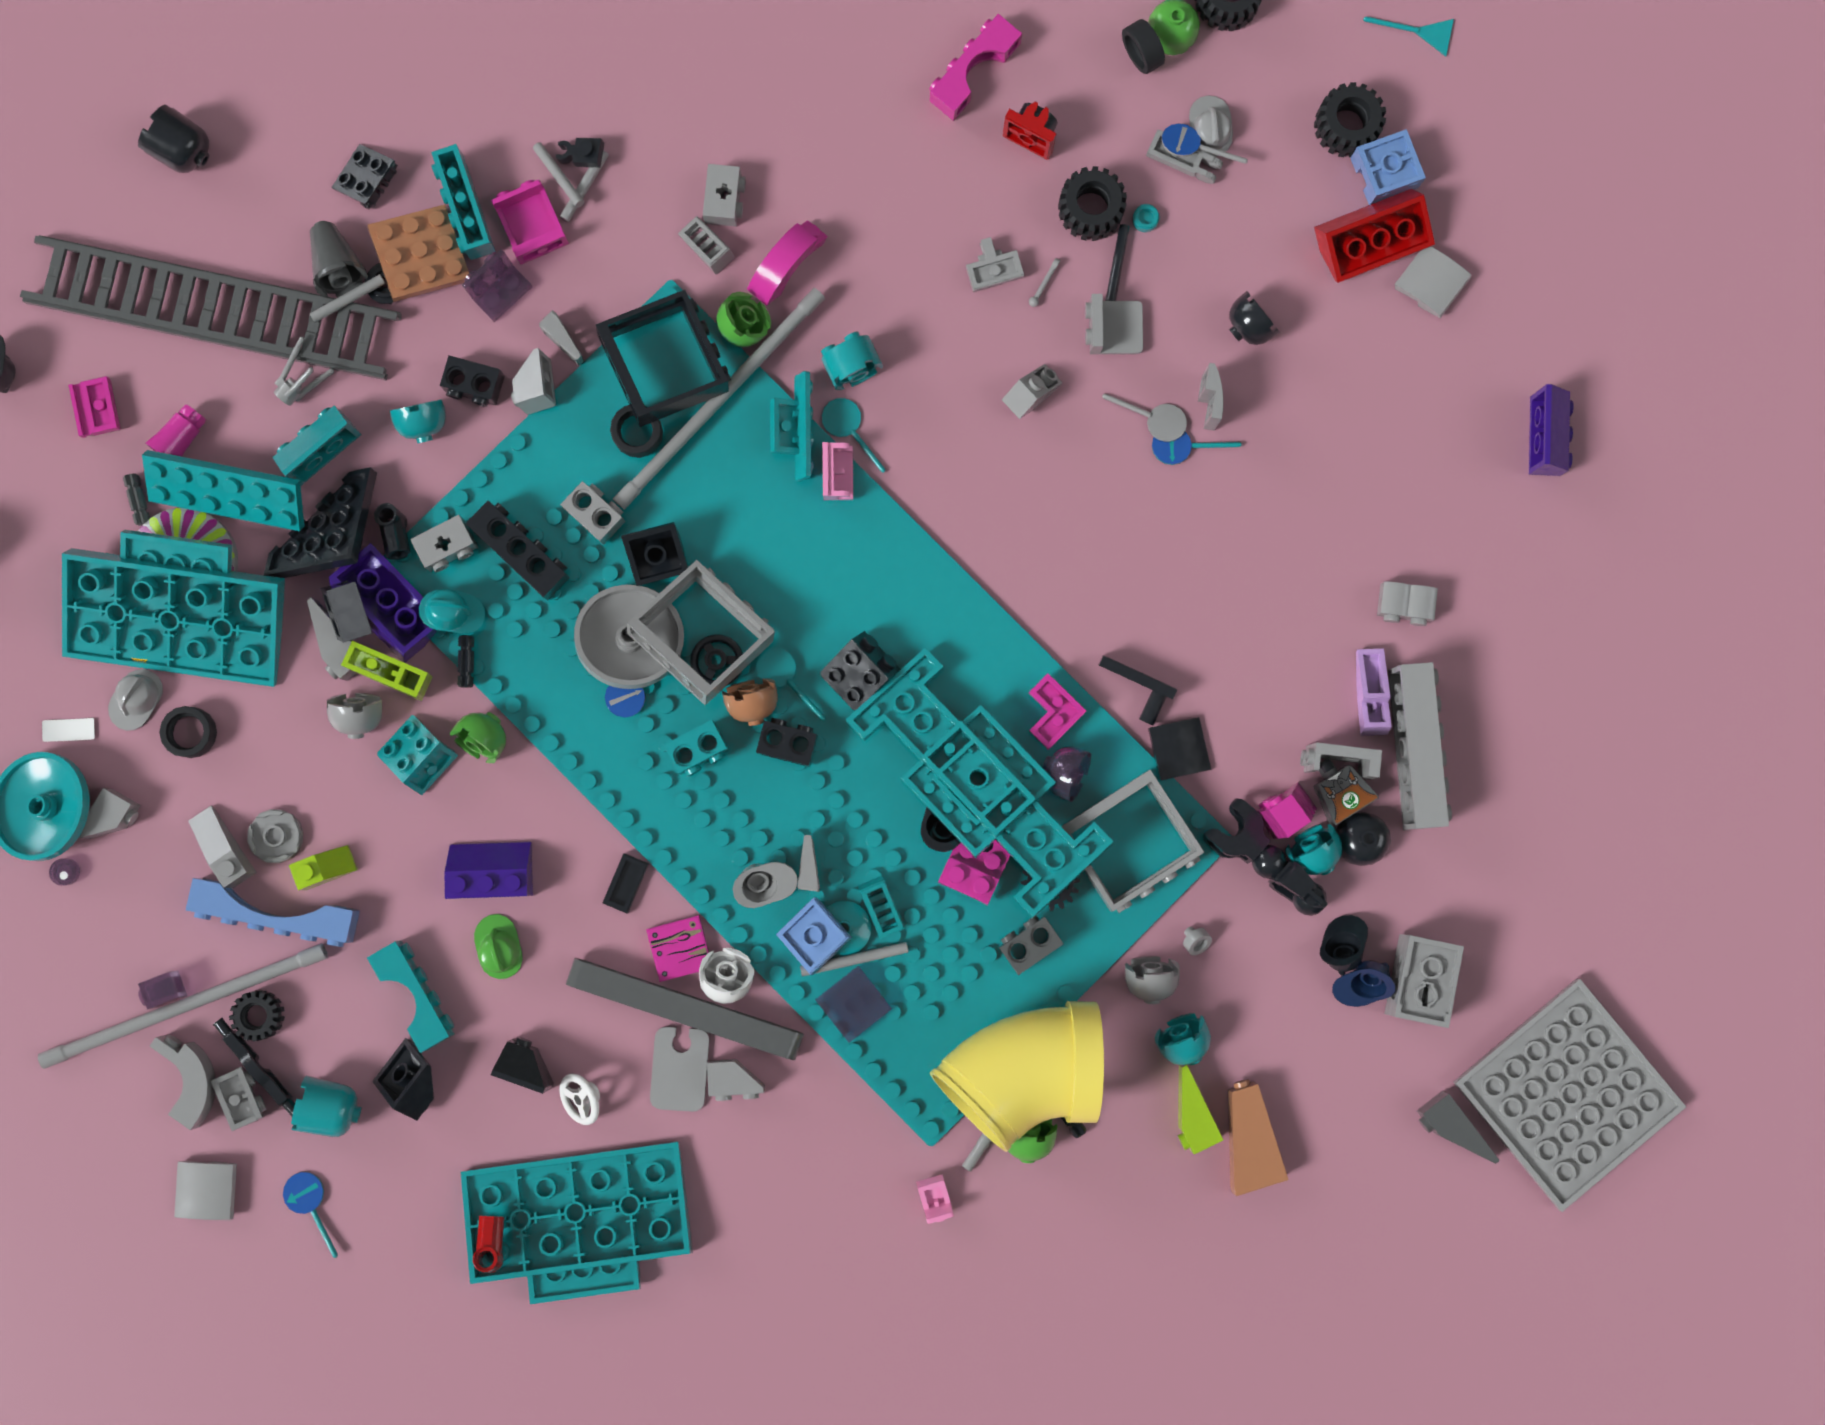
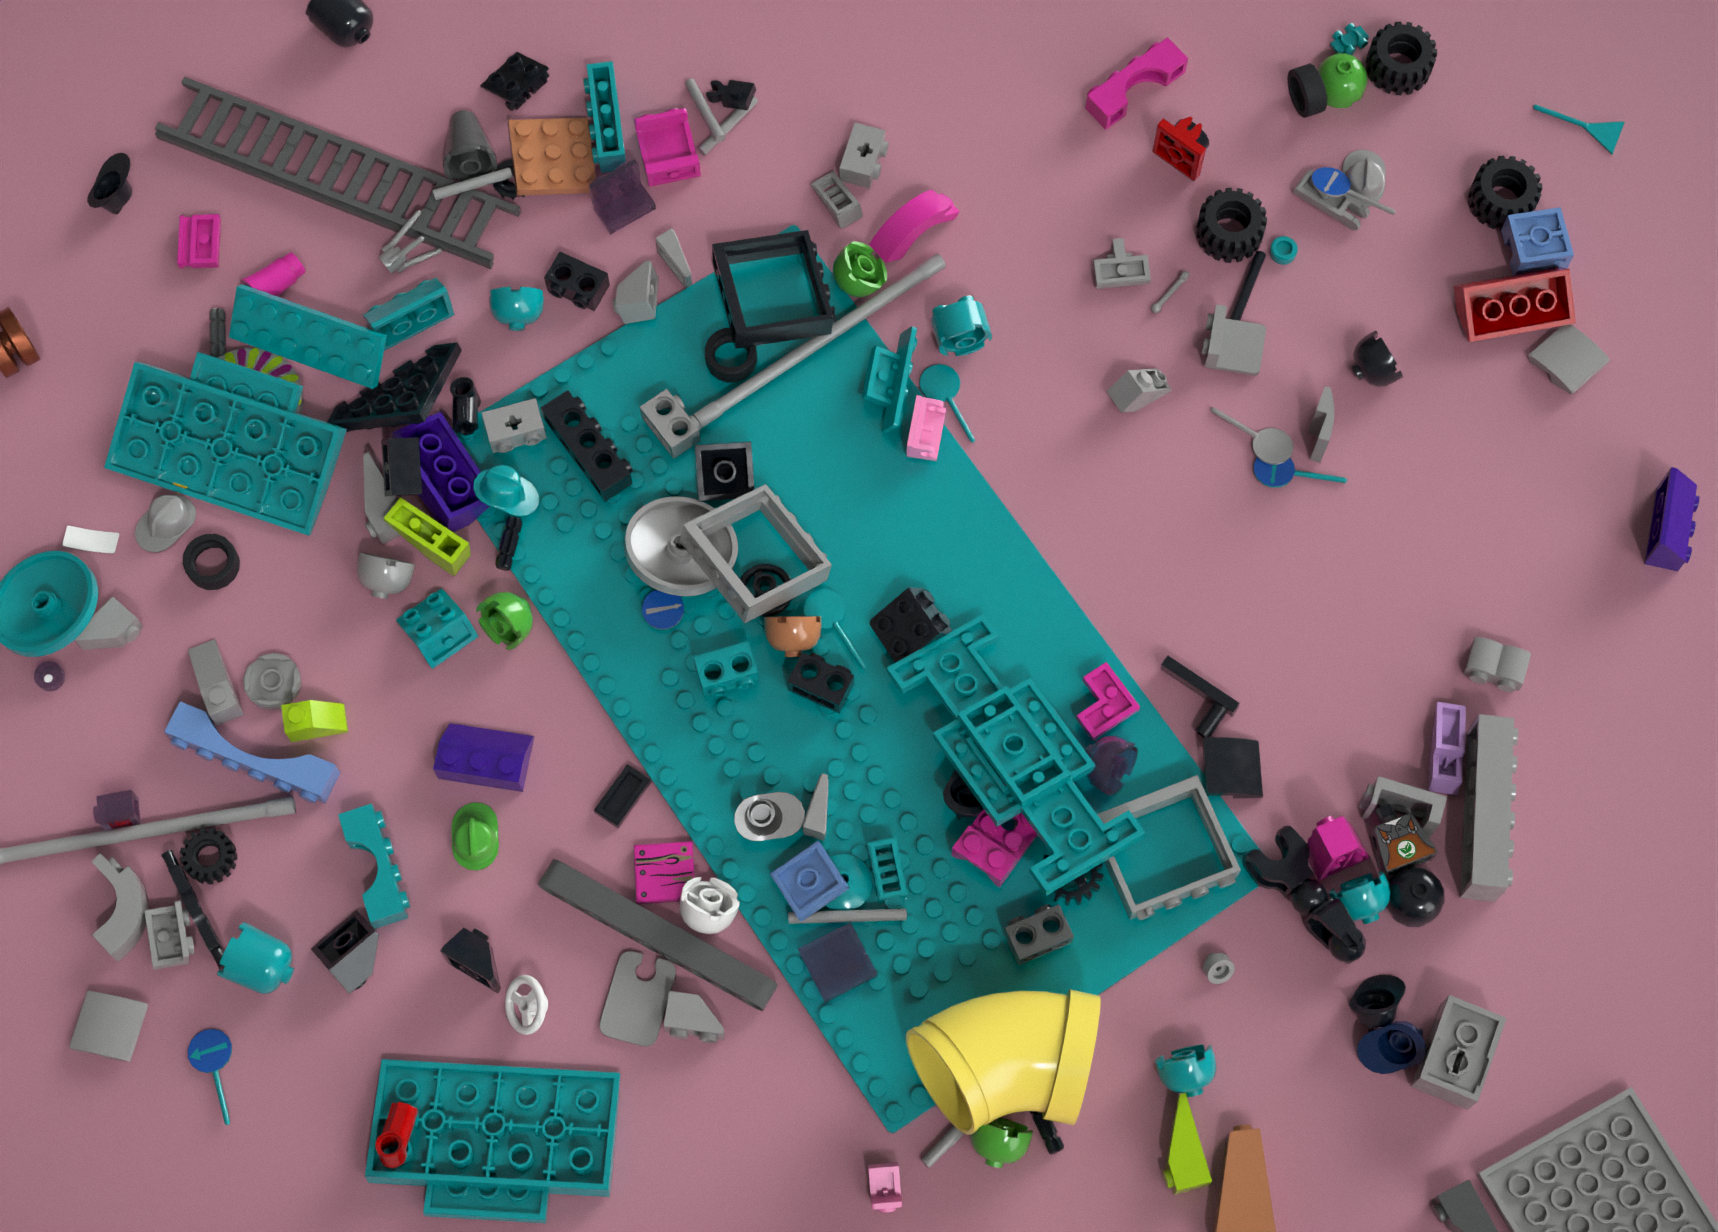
camera: 15 degrees right, 15 degrees down
(1152, 979) = (1162, 997): light grey cylinder -> none

